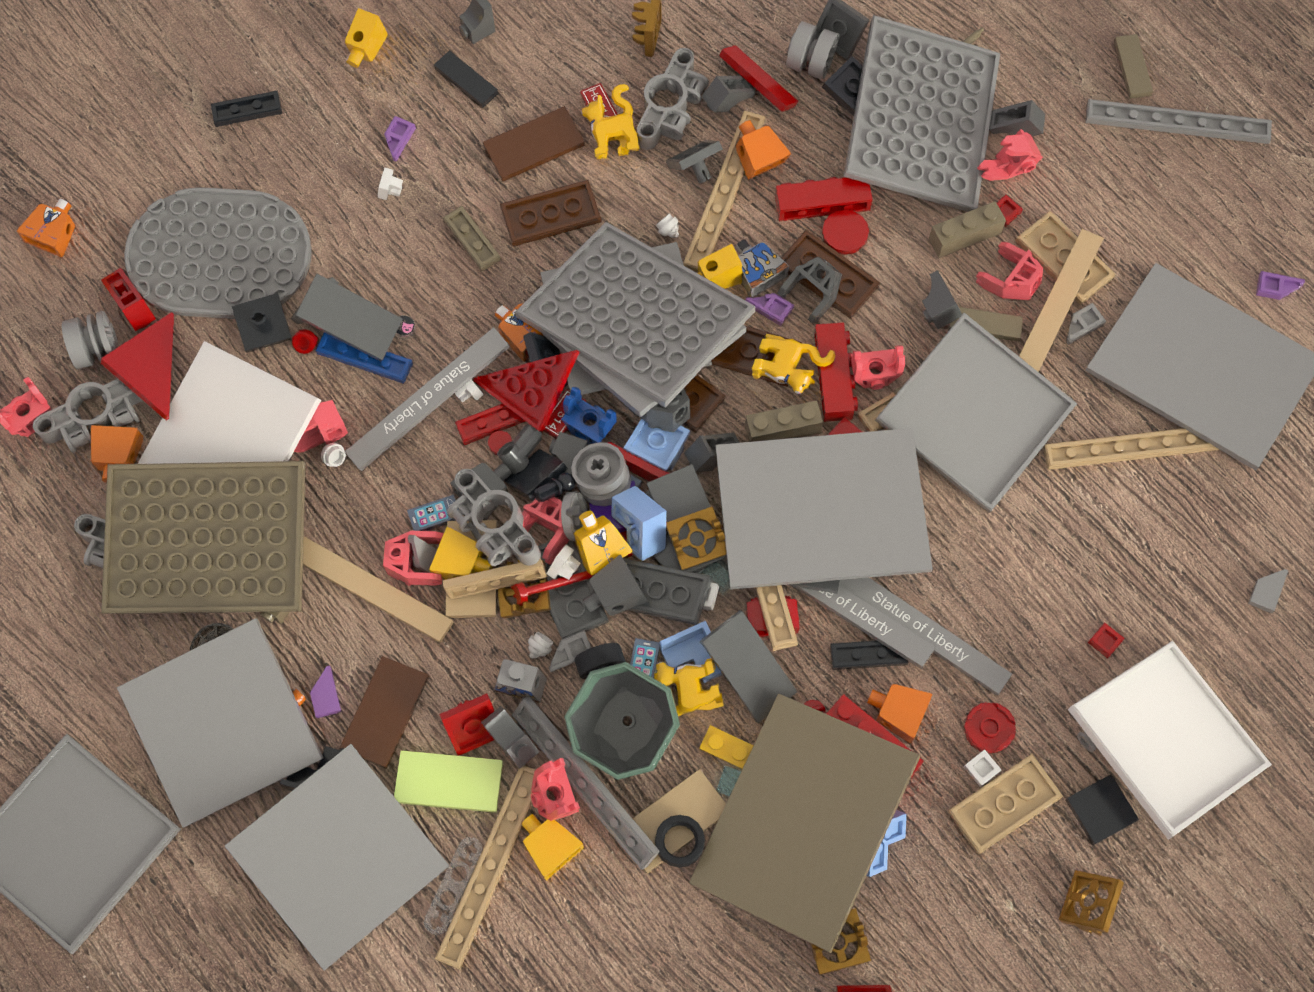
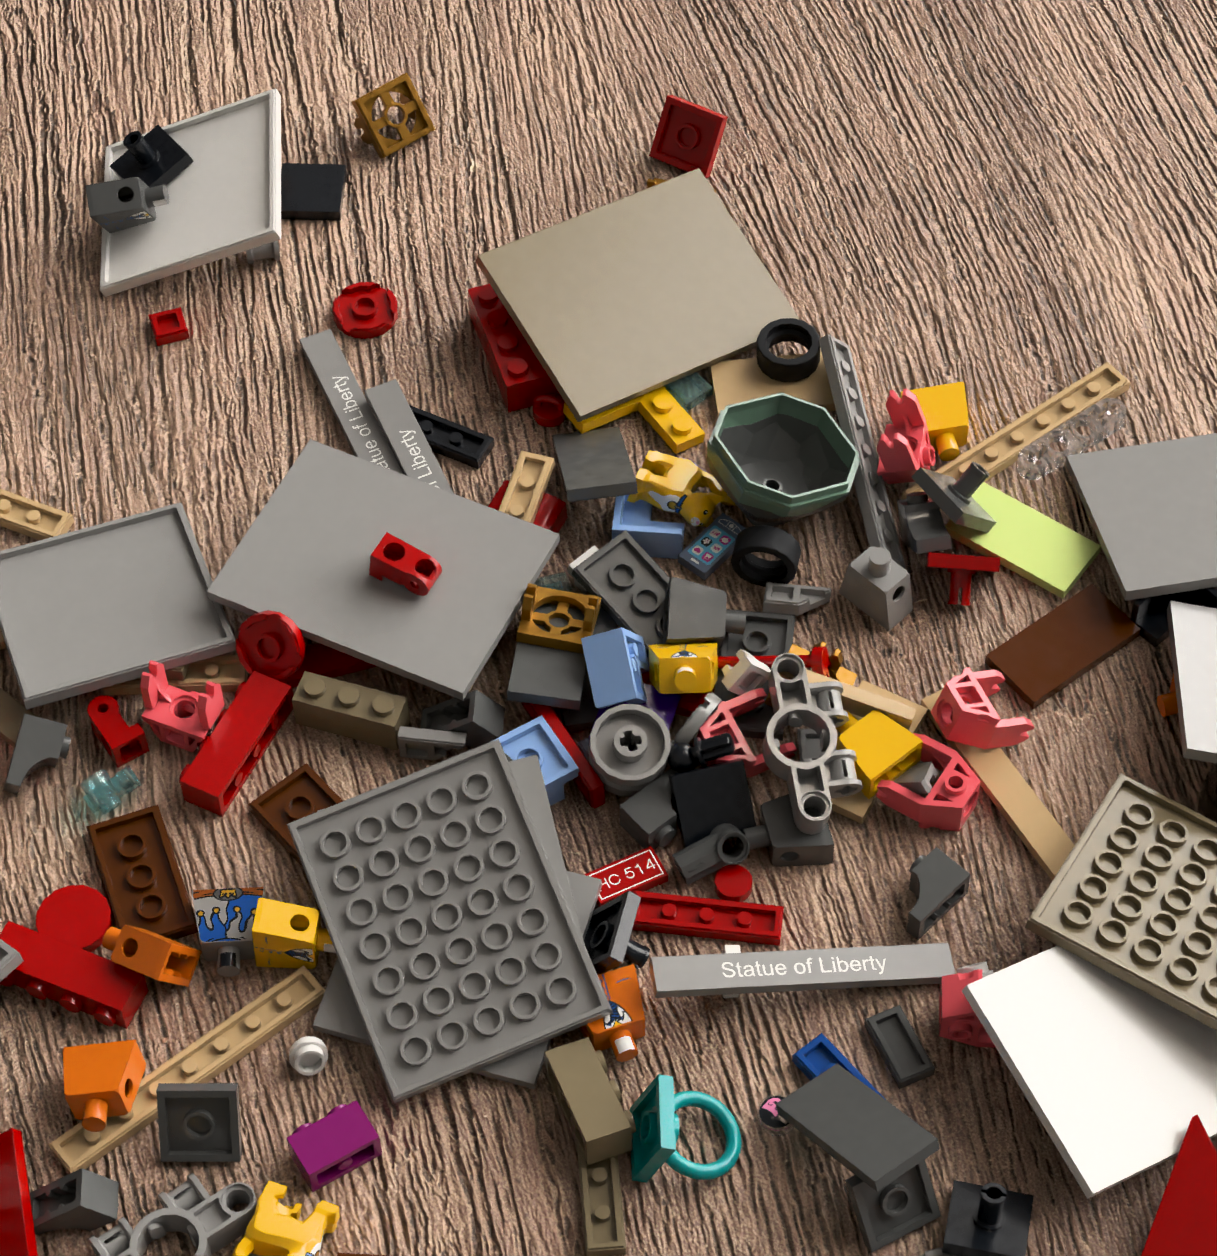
camera: 150 degrees left, 15 degrees down
(304, 341) = (942, 1164): red tile -> none
(325, 695) = (1130, 697): medium lavender tile -> none
(357, 398) = (899, 1046): none -> dark grey tile
(380, 497) = (937, 886): none -> dark grey arch
(408, 606) = (977, 722): none -> coral piece
(431, 514) = (874, 839): tile -> none
(456, 272) = (659, 1130): none -> teal tile
(498, 764) = (956, 496): none -> dark grey tile
(502, 271) = (589, 1100): none -> dark tan brick
(532, 387) = (653, 887): red tile -> none
(539, 645) = (826, 621): white plate -> none
(550, 213) = (460, 1173): reddish brown tile -> none
(579, 411) = (594, 825): blue piece -> none
(621, 187) = (334, 1145): none -> magenta brick
(732, 425) = (428, 743): none -> light grey tile
(772, 307) = (248, 870): medium lavender tile -> none
(783, 221) = (152, 954): none -> orange torso
(787, 355) = (288, 775): yellow animal -> none
(803, 499) = (404, 565): none -> red leg
(813, 272) = (163, 854): dark grey piece -> none
(856, 424) = (270, 645): none -> red tile
(881, 306) = (104, 792): none -> clear light blue plate
(901, 709) = (448, 360): orange torso -> none
(913, 342) = (118, 739): none -> red leg
(982, 768) = (406, 274): white plate -> none
(1005, 804) = (406, 241): tan tile -> none
(1202, 690) = (124, 203): none -> dark grey torso
(1219, 750) = (151, 158): none -> black tile

